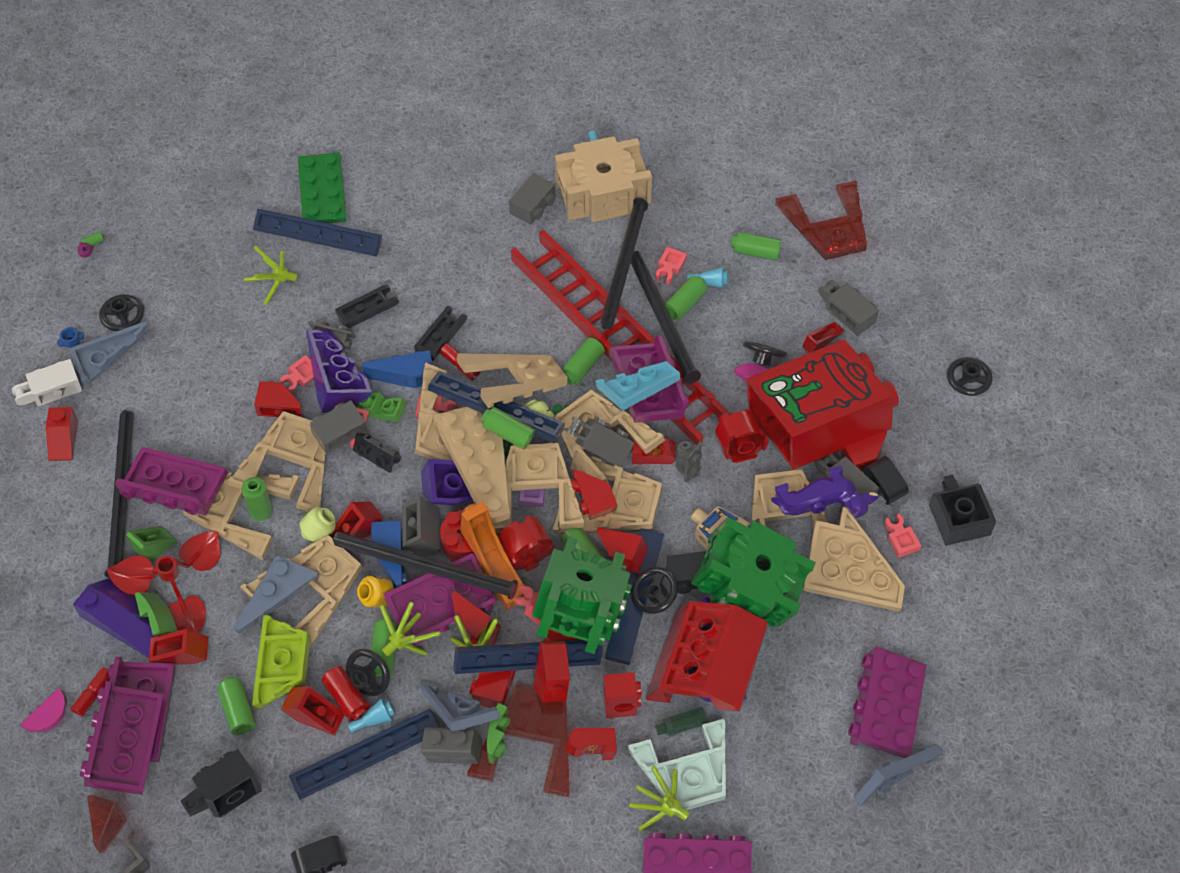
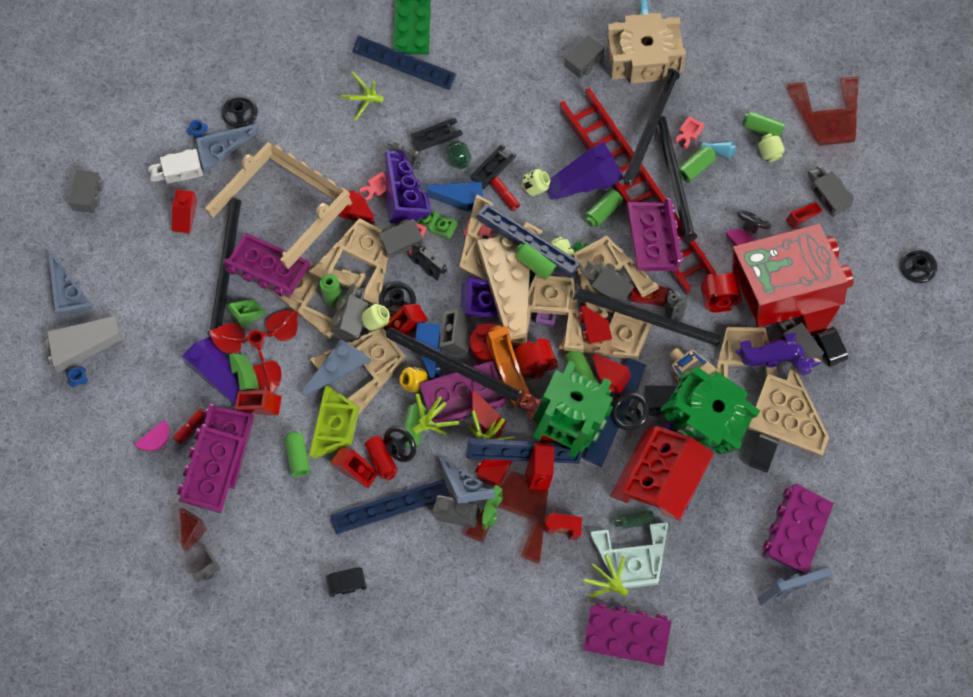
camera: 10 degrees right, 10 degrees up
(87, 244) = (217, 46): arm -> none
(222, 786) = (280, 516): black hinge -> none
(239, 407) = (325, 213): none -> tan piece
(283, 530) = (348, 315): none -> dark grey brick
(340, 490) = (396, 292): none -> black piece
(377, 714) = (403, 477): medium azure cone -> none
(397, 325) = (458, 154): none -> clear green head
(495, 341) = (536, 182): none -> yellowish green head
(530, 371) = (562, 213): tan wing -> none
(558, 320) = (586, 173): none -> dark purple wedge
(621, 695) = (591, 492): red brick -> none
(631, 389) = (641, 242): medium azure wing -> none
(655, 475) = (646, 316): none -> black axle
(770, 268) = (771, 147): none -> yellowish green head
(828, 616) = (764, 453): none -> black beam
(901, 539) = (835, 397): coral plate -> none
(961, 512) = (886, 382): black hinge -> none

